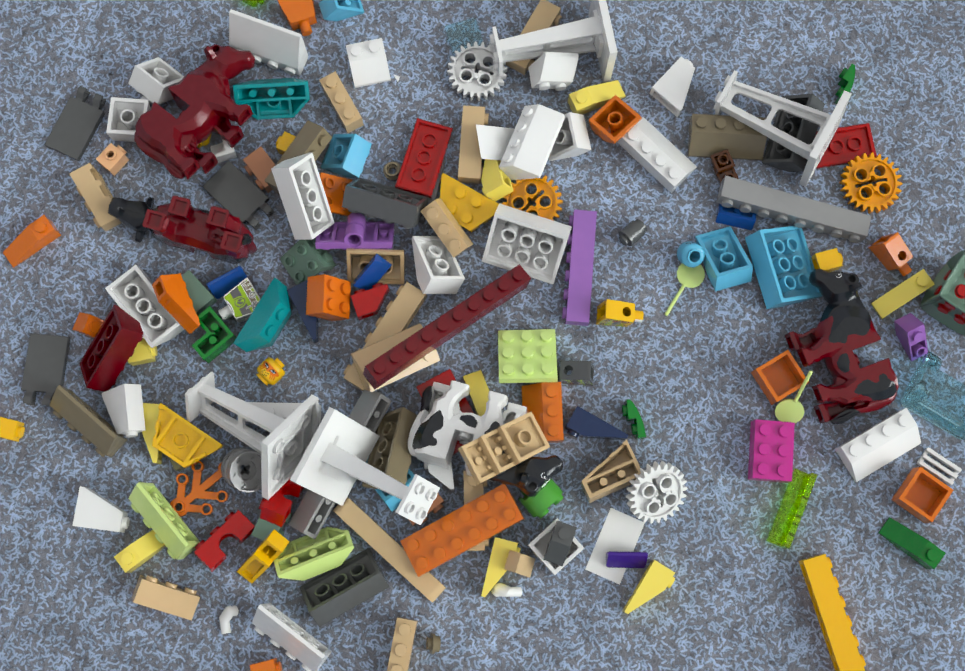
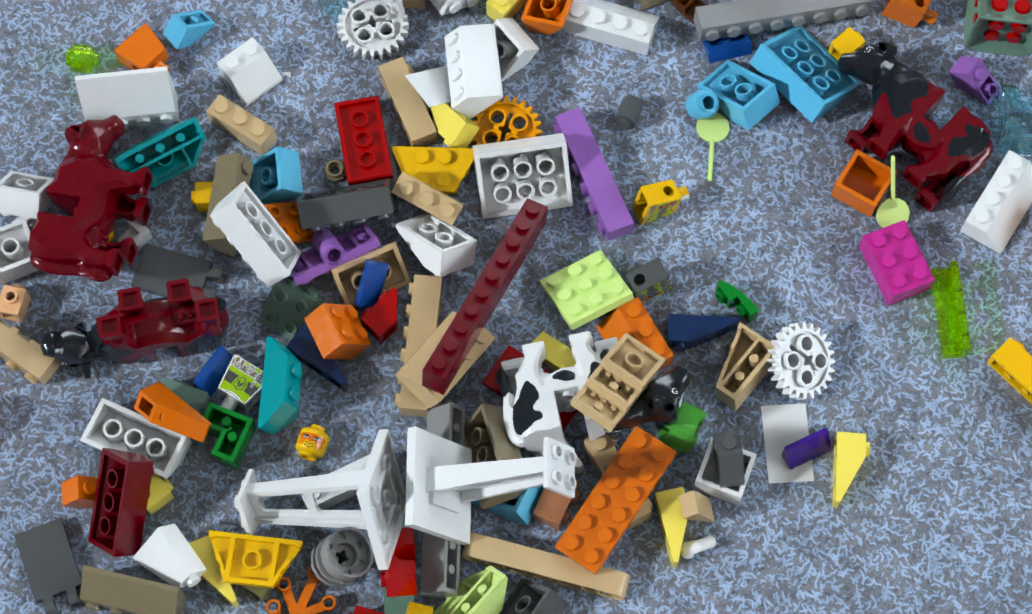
camera: 25 degrees left, 10 degrees down
(259, 165) = (188, 234): nougat brick -> none
(902, 293) = (942, 41): light yellow slope -> none

